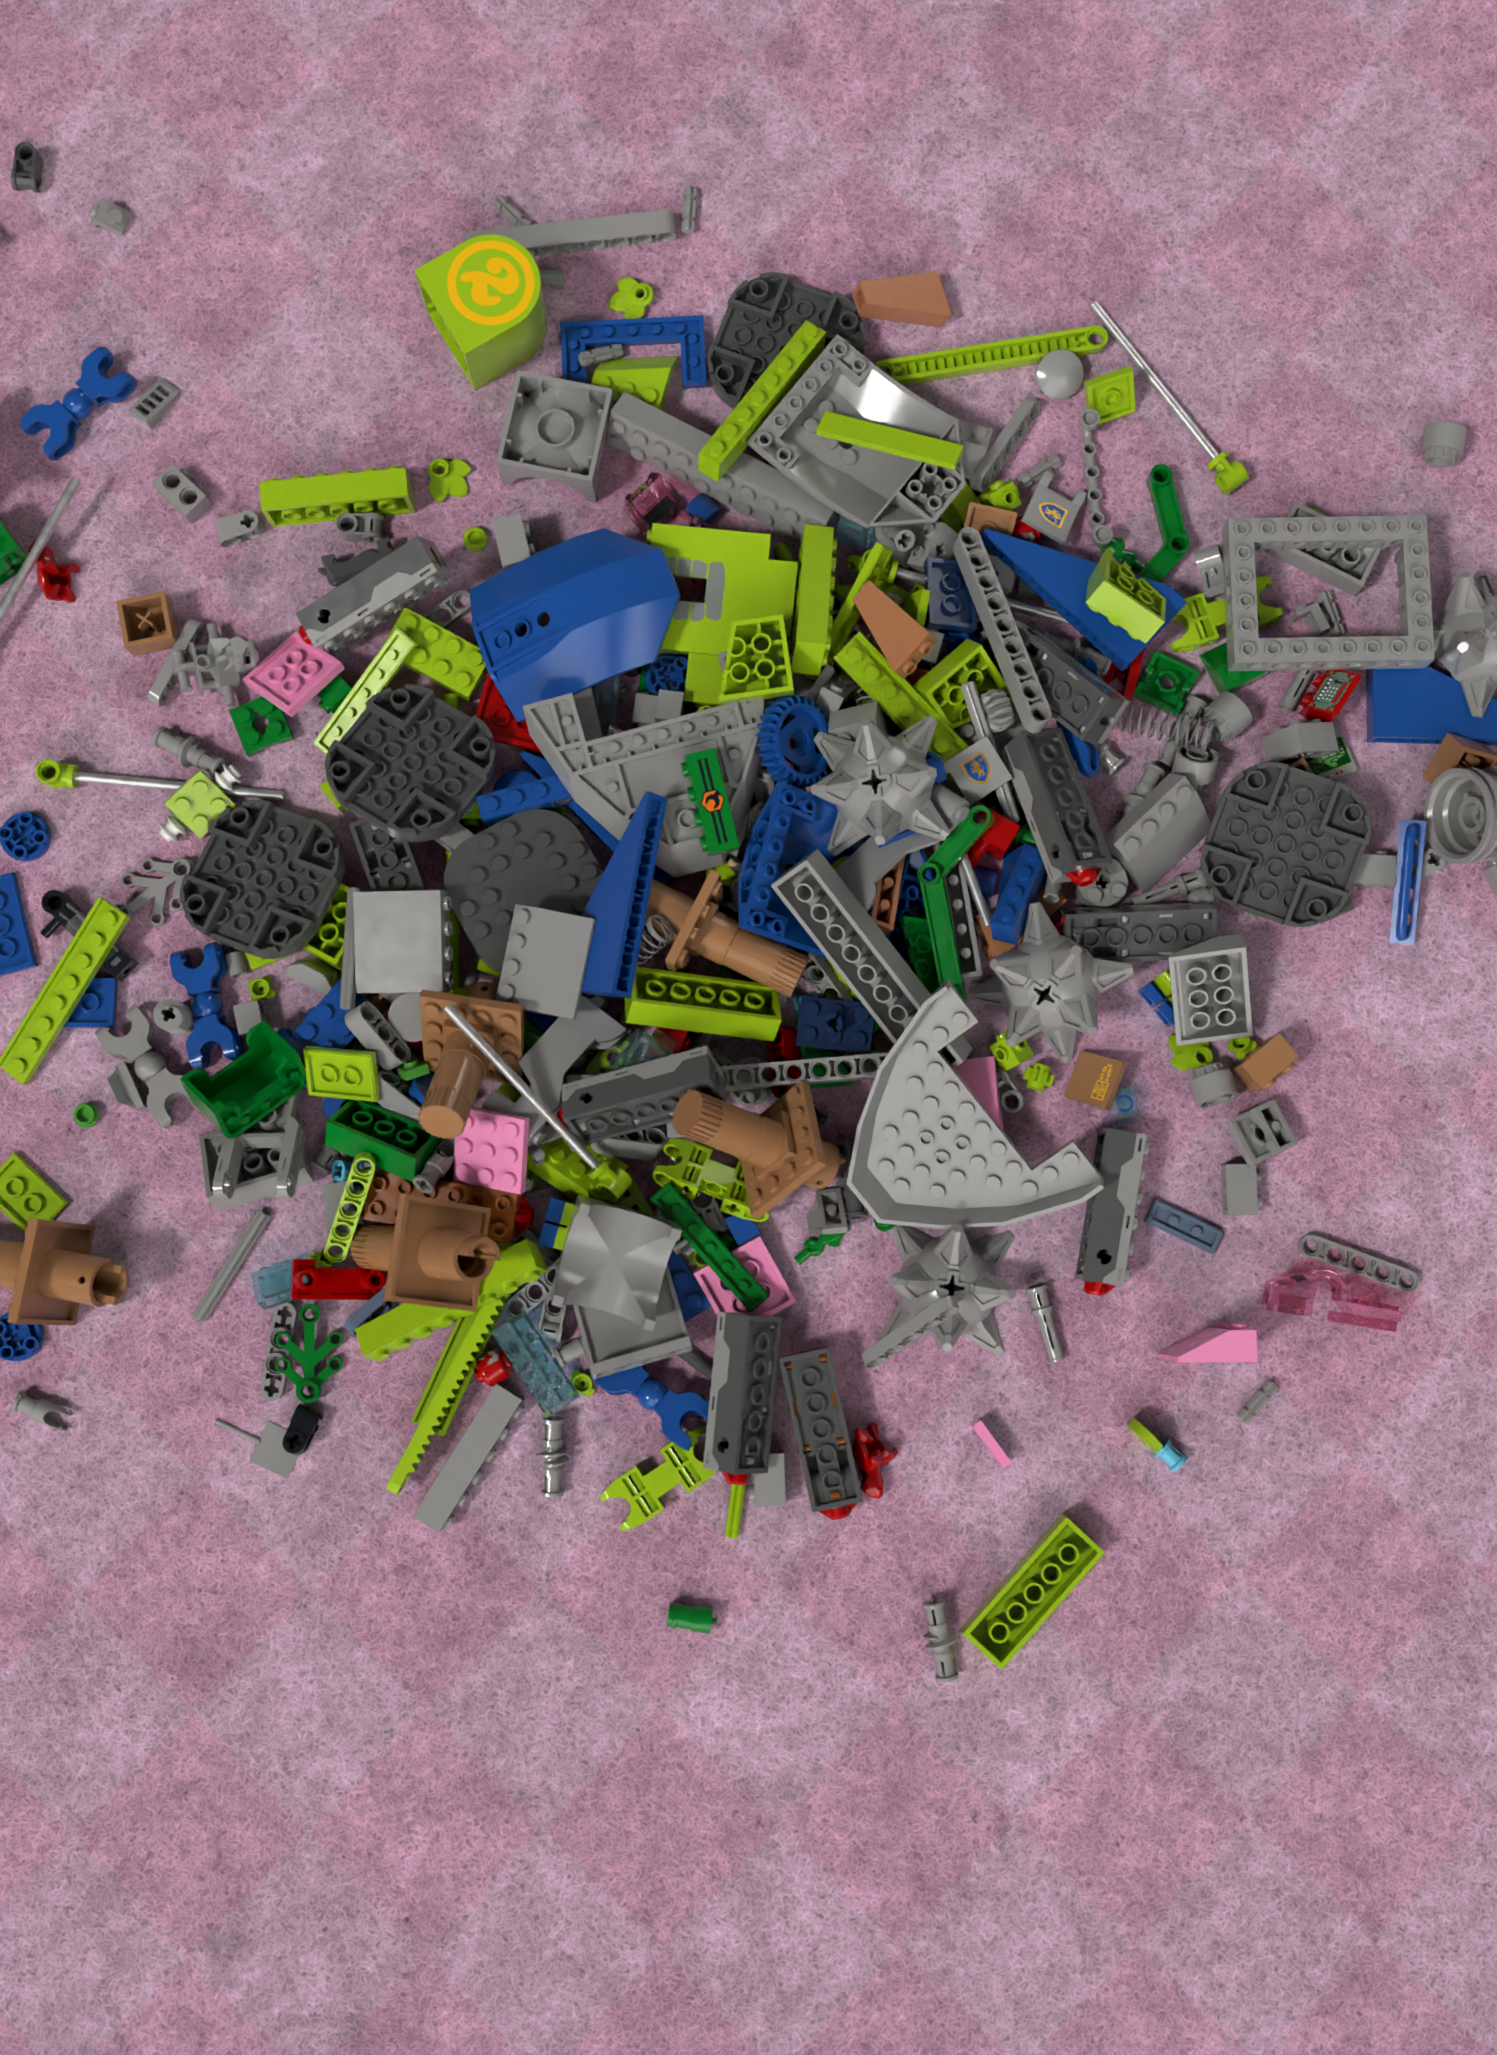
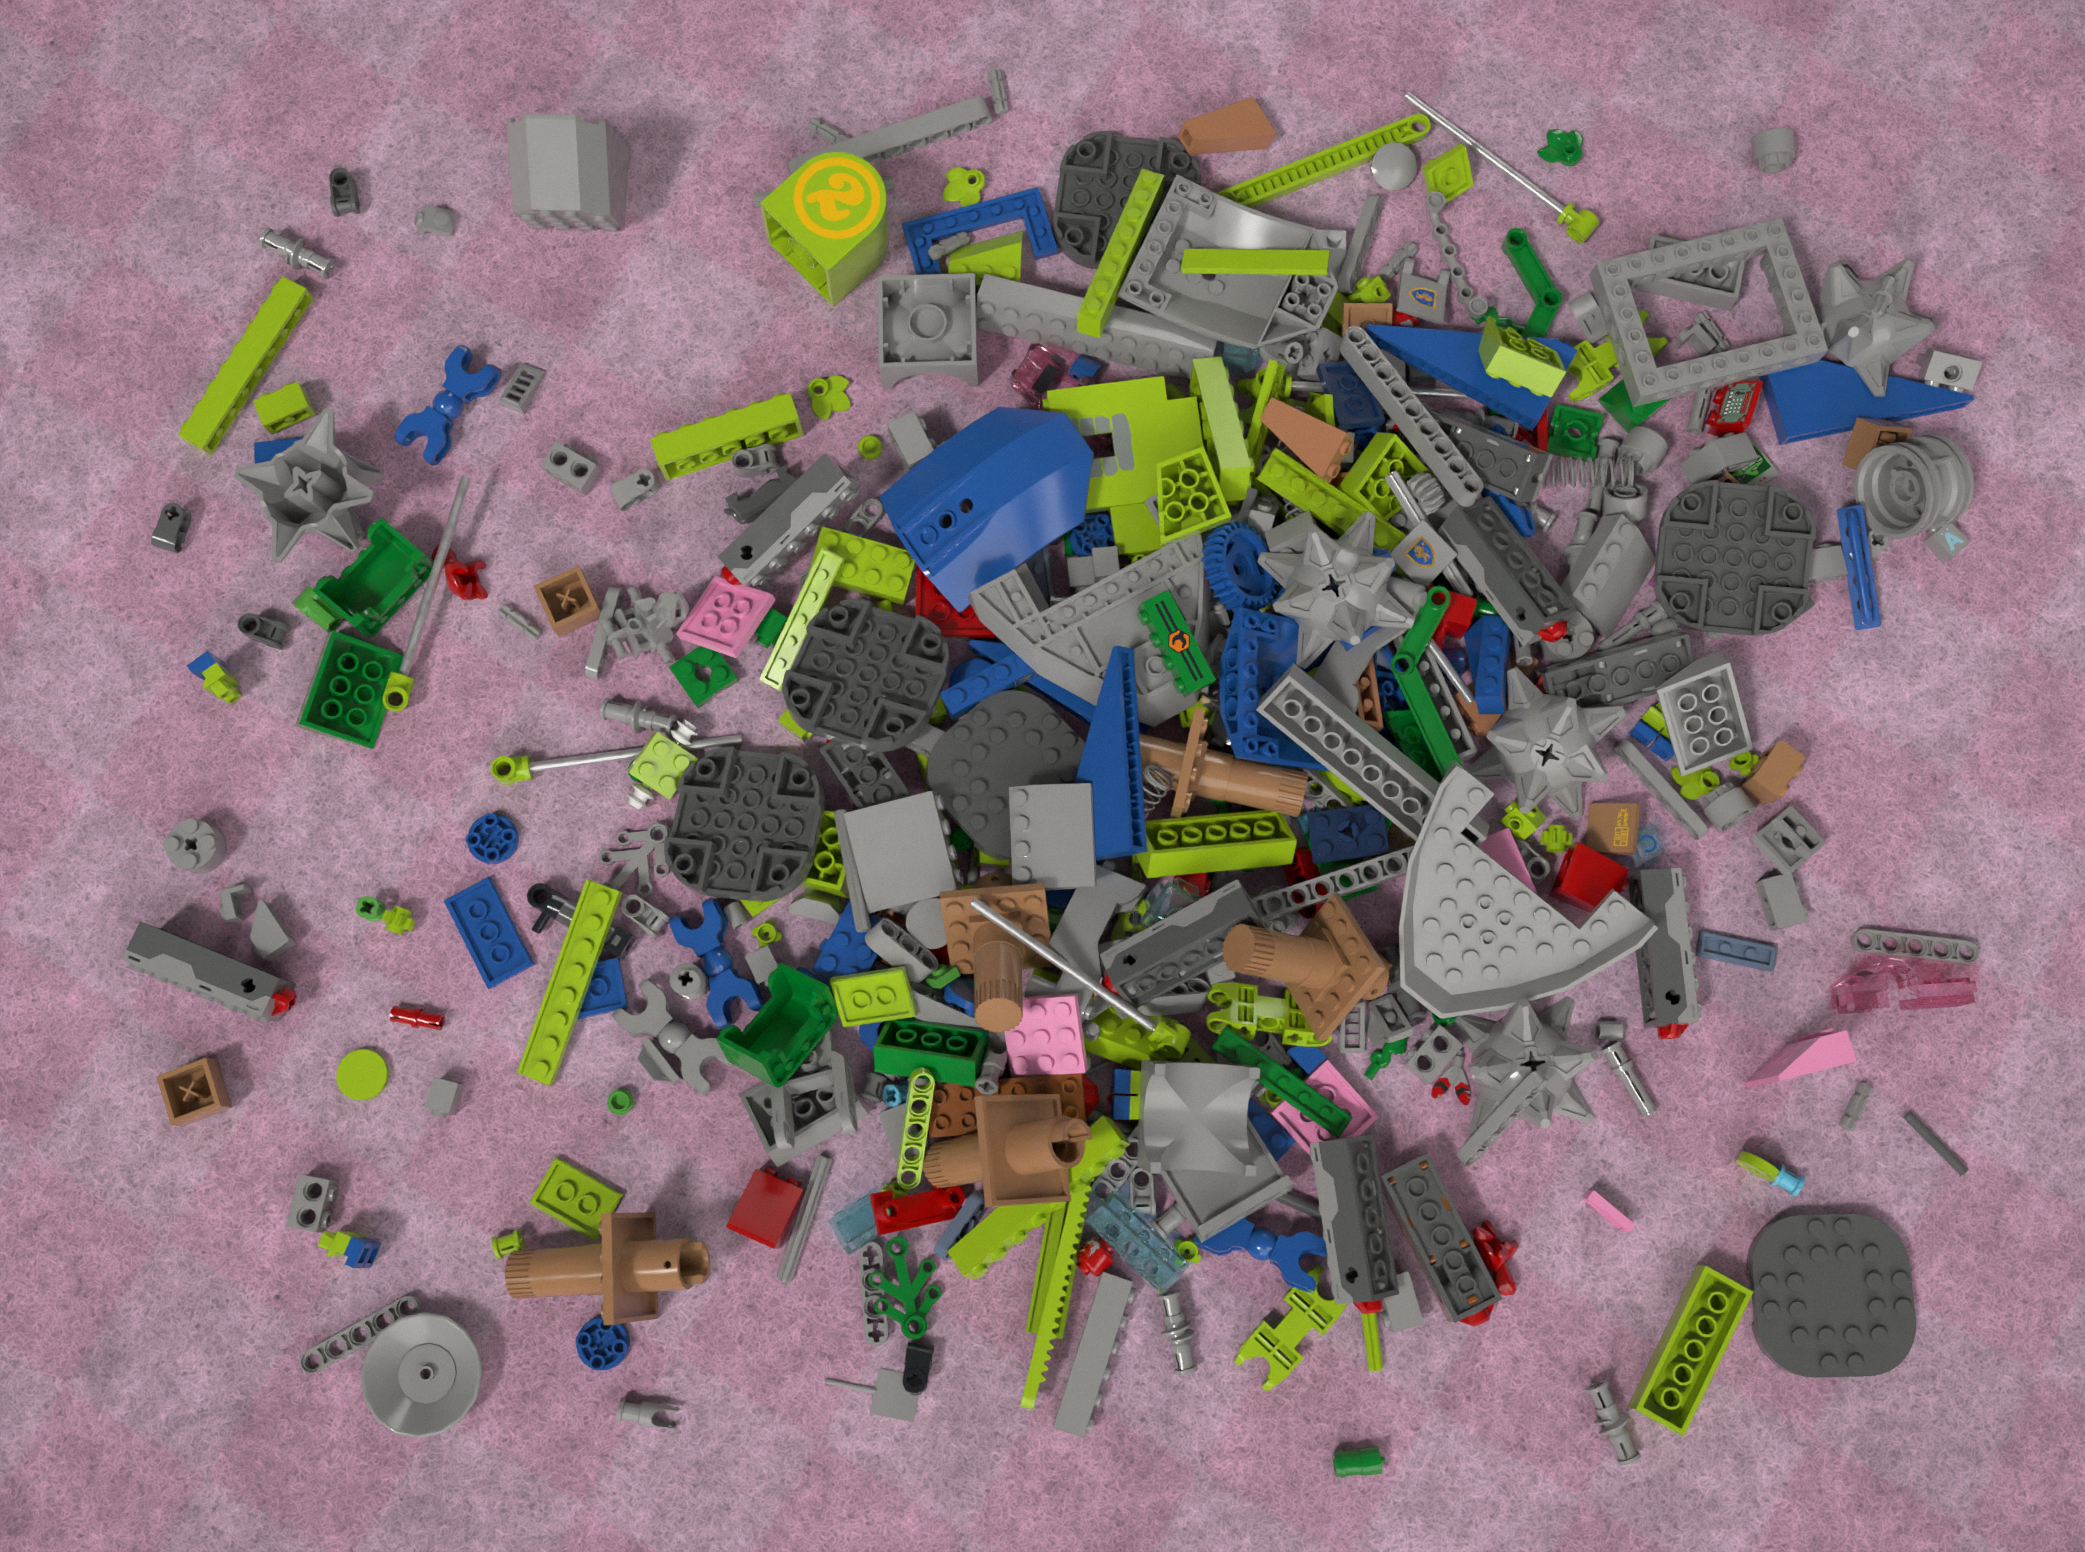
camera: 15 degrees left, 5 degrees down
(99, 633) = (519, 622): none -> light grey axle
(153, 947) = (648, 917): none -> light grey piece
(196, 1248) = (766, 1208): none -> red slope
(242, 197) = (567, 172): none -> light grey windscreen
(464, 945) = (961, 840): none -> green plate
(782, 1216) = (1360, 1015): none -> light grey slope
(866, 1260) = (1437, 1059): none -> light grey brick
(880, 1280) = (1455, 1076): none -> piece
(1040, 1272) = (1609, 1030): none -> light grey hinge
(1057, 1122) = (1587, 878): none -> red slope
(1156, 1057) = (1665, 793): none -> light grey beam
(1182, 1573) = (1831, 1295): none -> dark grey plate
(1232, 390) = (1562, 147): none -> green plate
(1324, 1455) = (1936, 1144): none -> dark grey bar

